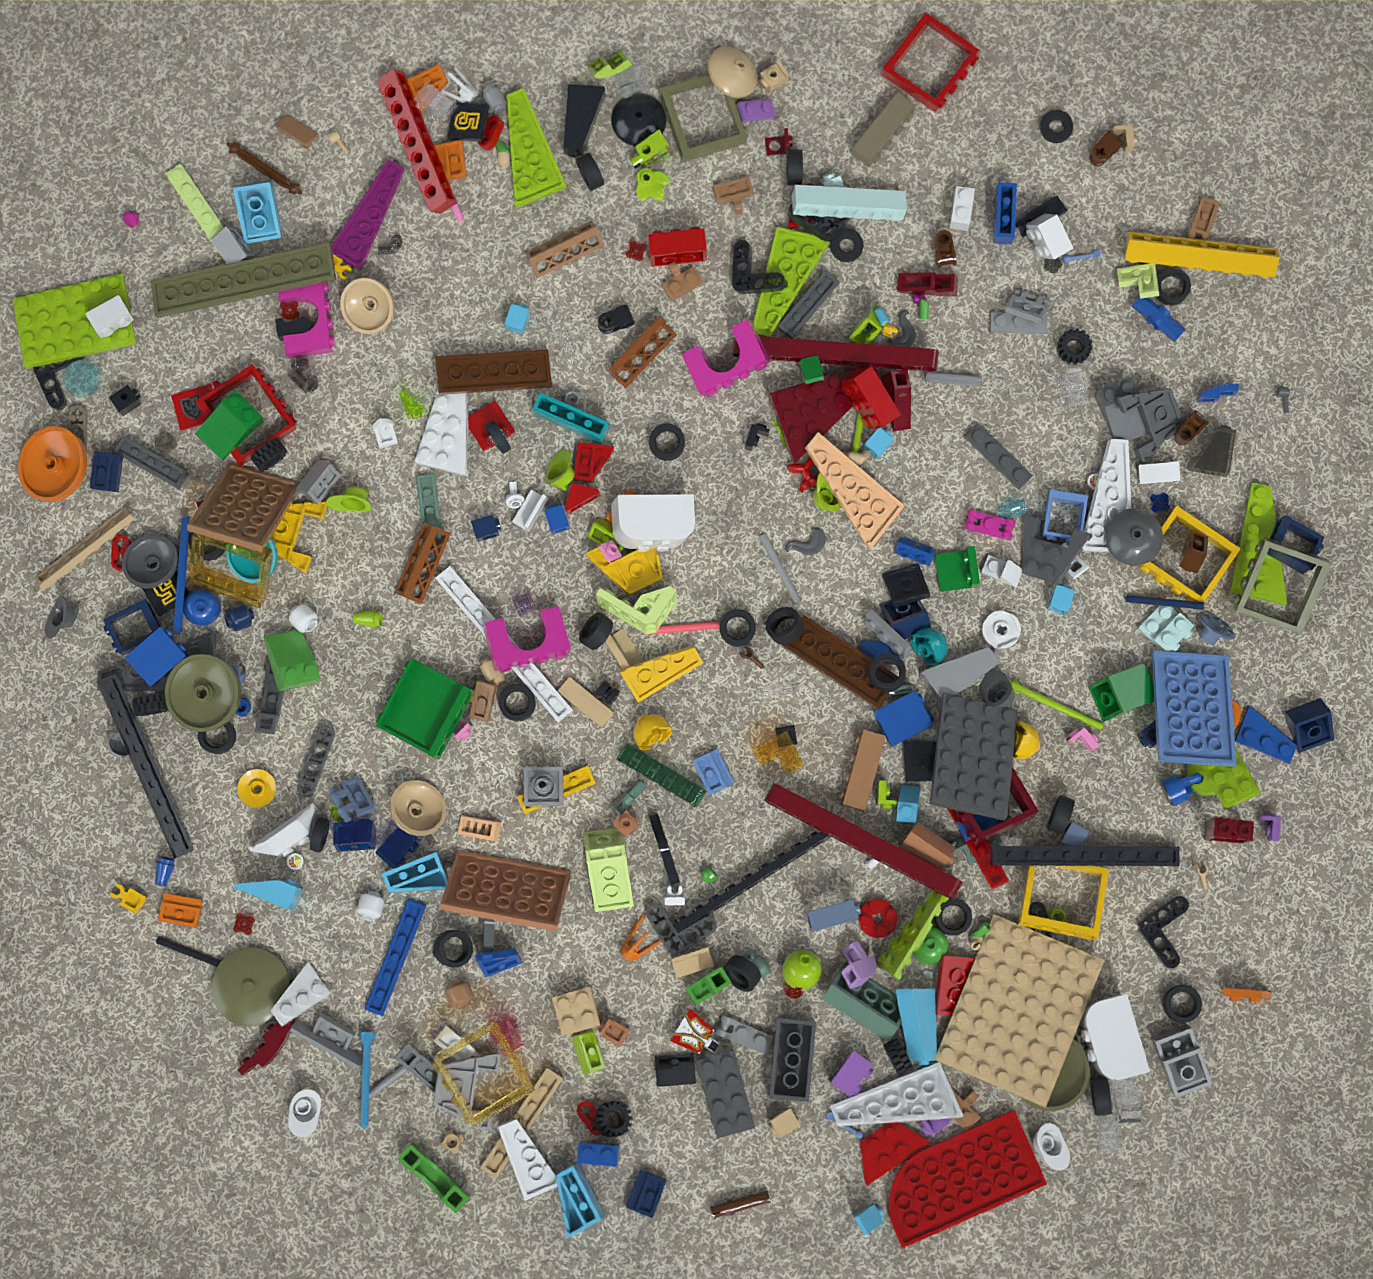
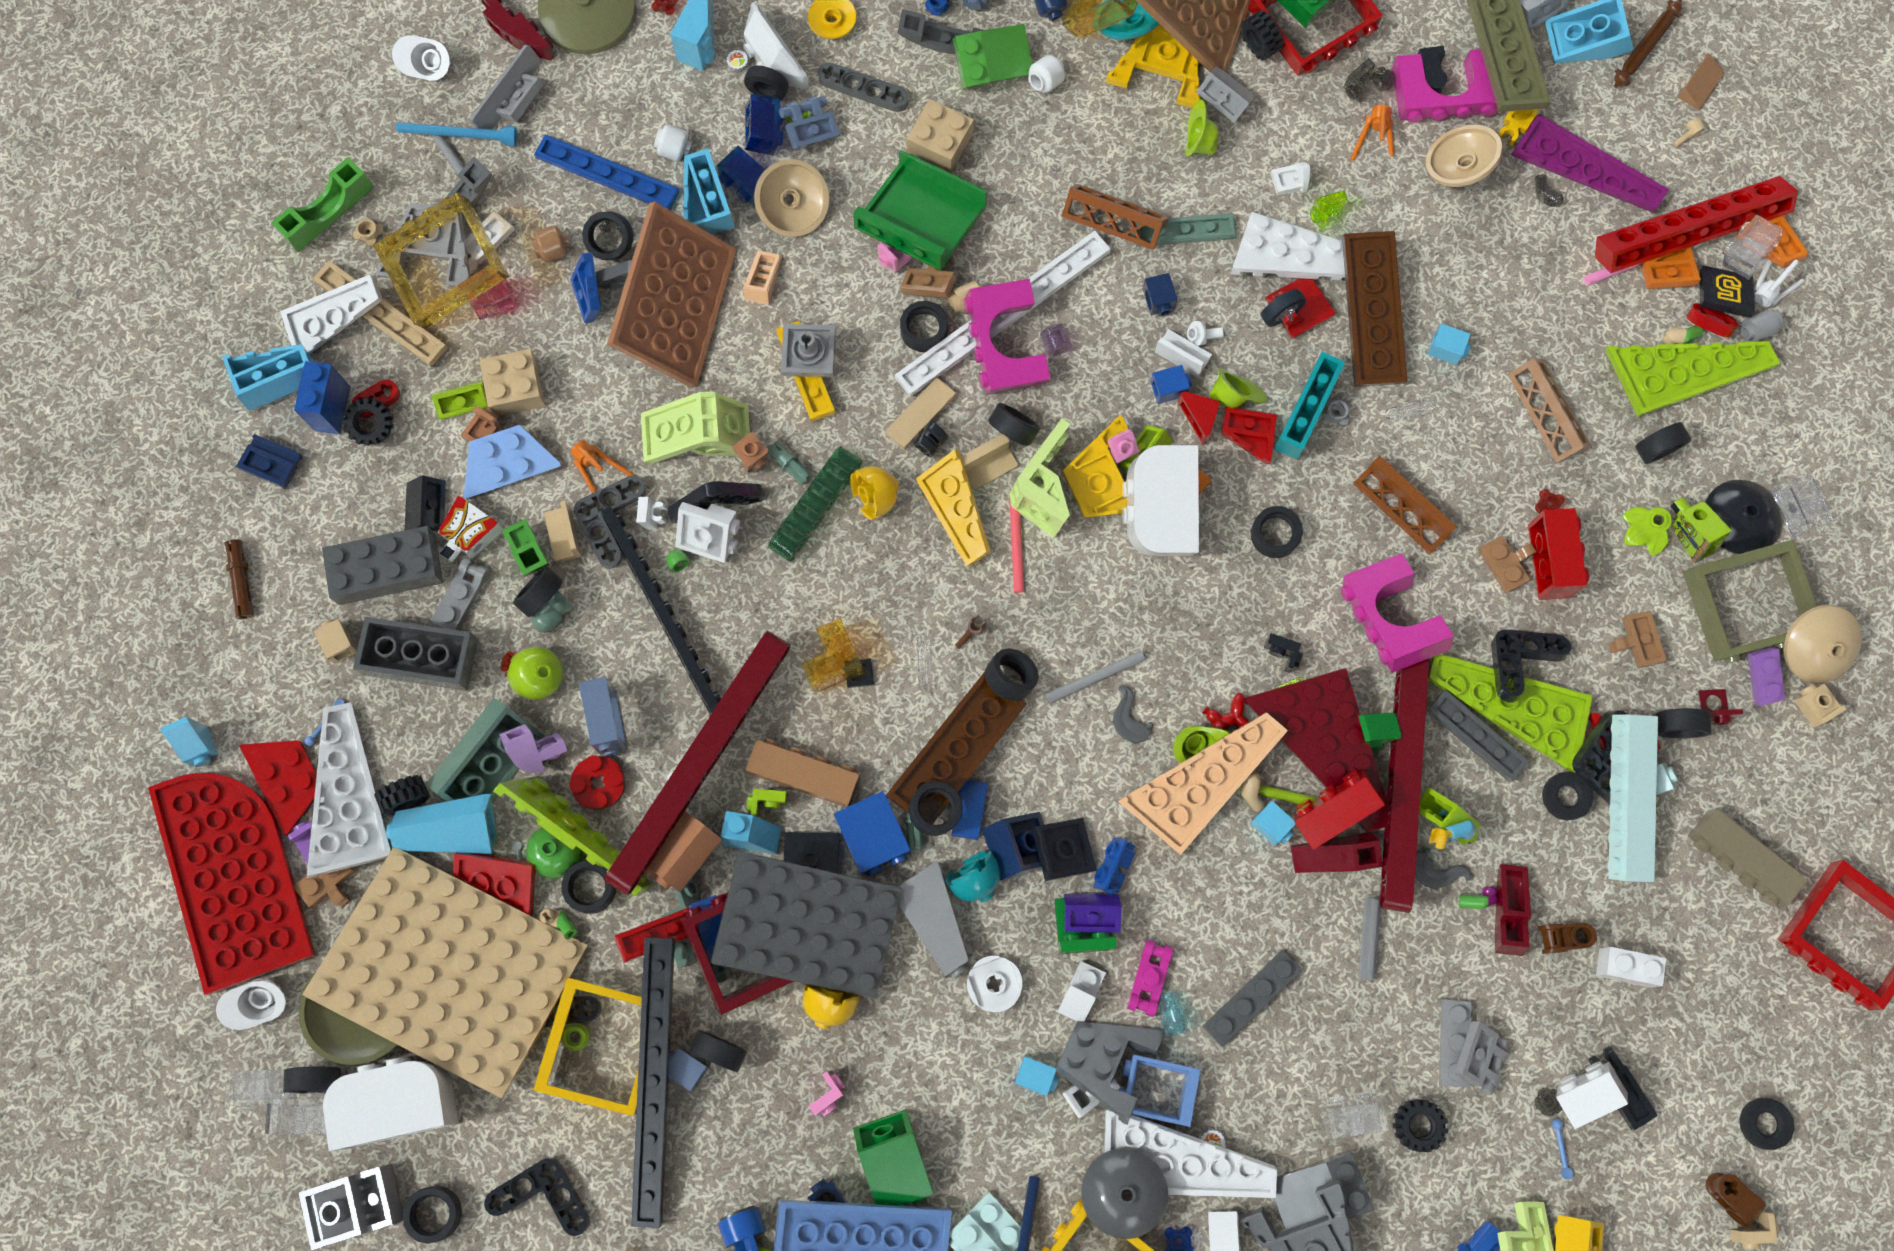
camera: 90 degrees right, 5 degrees down
(289, 315) = (1455, 62): clear red plate -> none
(300, 996) = (566, 57): white wing -> none
(336, 365) = (1380, 121): none -> orange plant
(359, 697) = (940, 135): none -> tan brick
(369, 618) = (1044, 153): lime cone -> none
(581, 114) = (1744, 437): black slope -> none
(601, 68) = (1818, 471): lime slope -> none
(618, 318) = (1451, 472): black piece -> none
(637, 1011) = (504, 460): none -> light blue wing
(691, 850) = (707, 531): none -> white plate
(713, 772) = (815, 572): medium blue plate -> none
(737, 613) = (1018, 594): black tyre -> none
(852, 1073) = (388, 732): medium lavender brick -> none
(887, 634) = (991, 815): light grey plate -> none
(949, 563) = (1092, 913): none -> dark purple panel
(997, 689) = (905, 971): dark grey piece -> none
(1005, 213) = (1626, 1031): blue brick -> none
(1055, 705) = (911, 999): lime bar -> none

